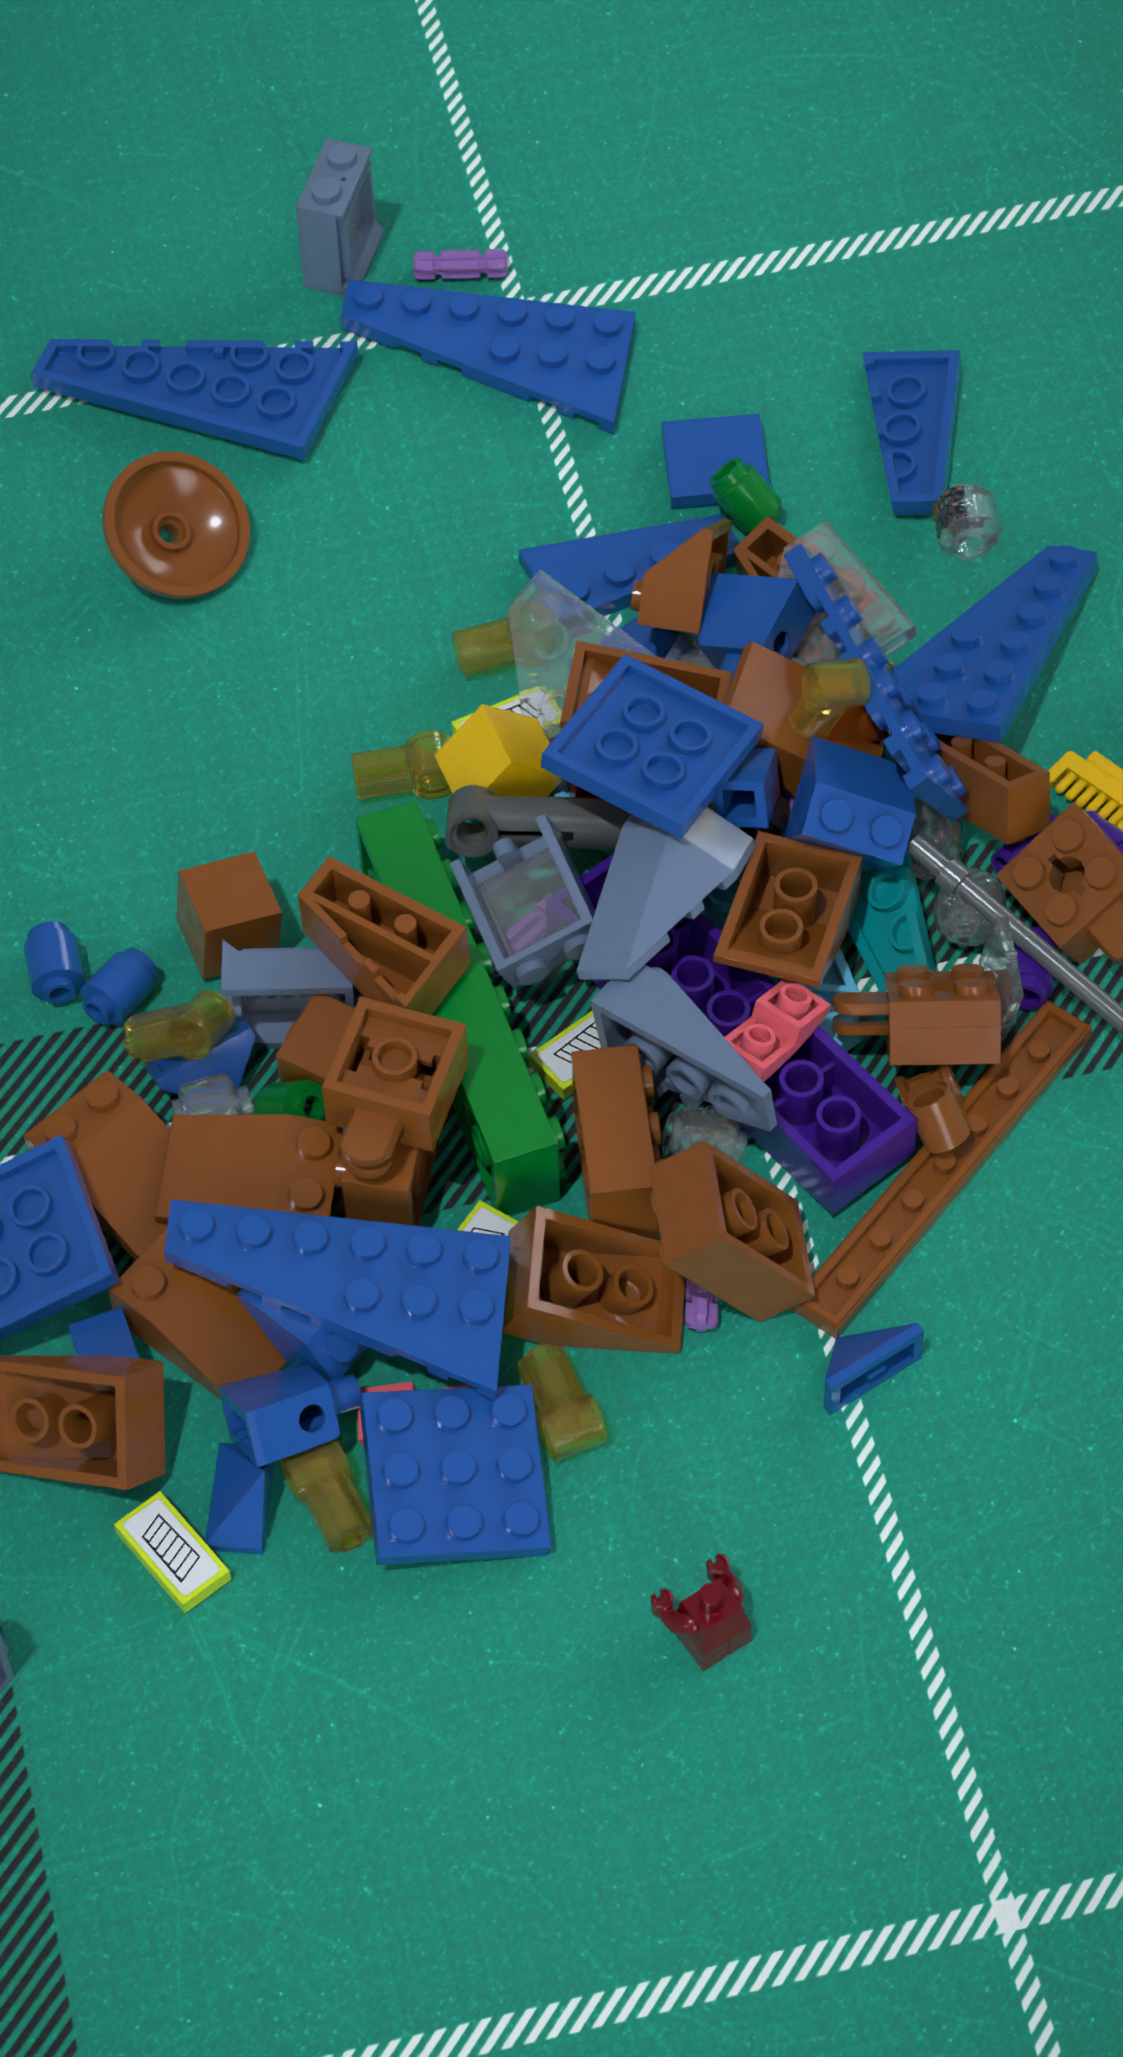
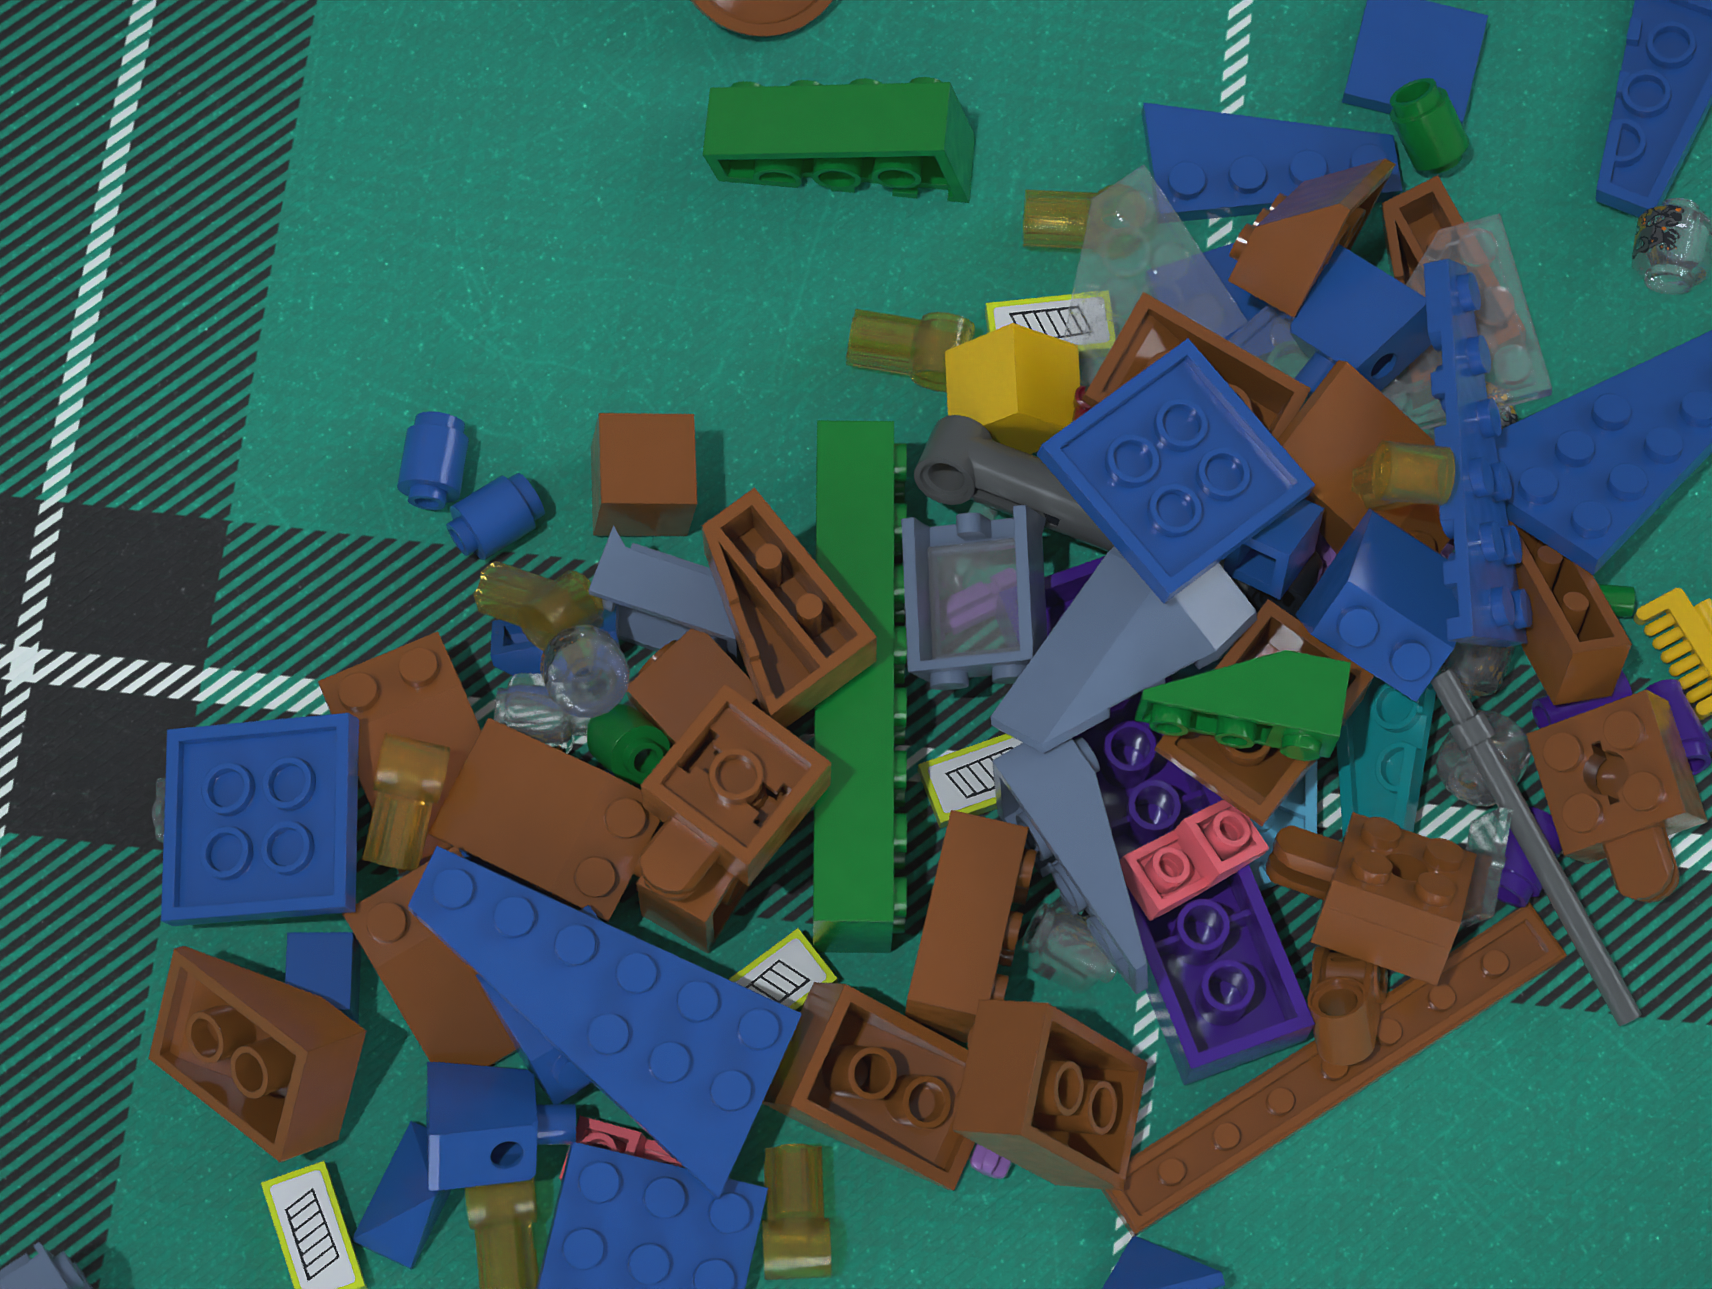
camera: 15 degrees right, 15 degrees up
(127, 1179) = (407, 785): none -> clear yellow piece
(255, 1053) = (584, 671): none -> clear head
(292, 638) = (842, 136): none -> green wedge
(783, 892) = (1269, 701): none -> green slope

